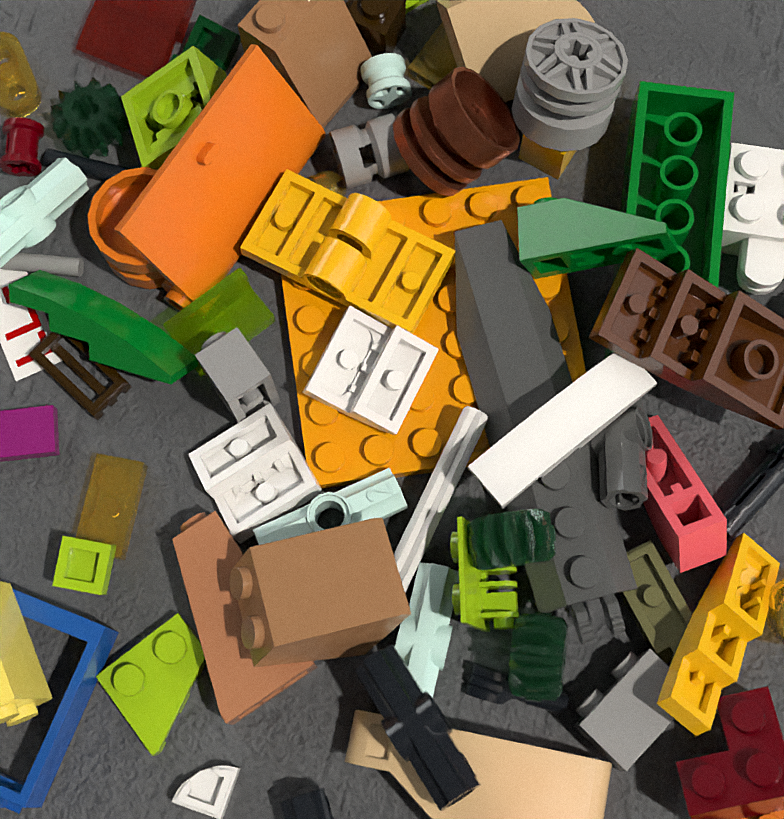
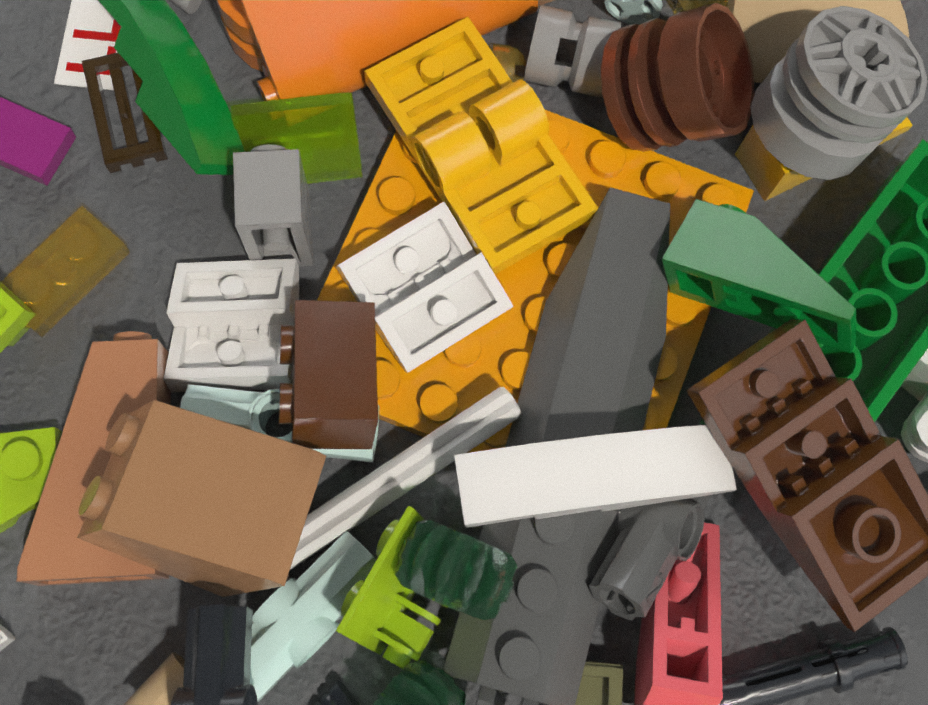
camera: 20 degrees right, 0 degrees up
(350, 463) = (332, 375): none -> reddish brown brick

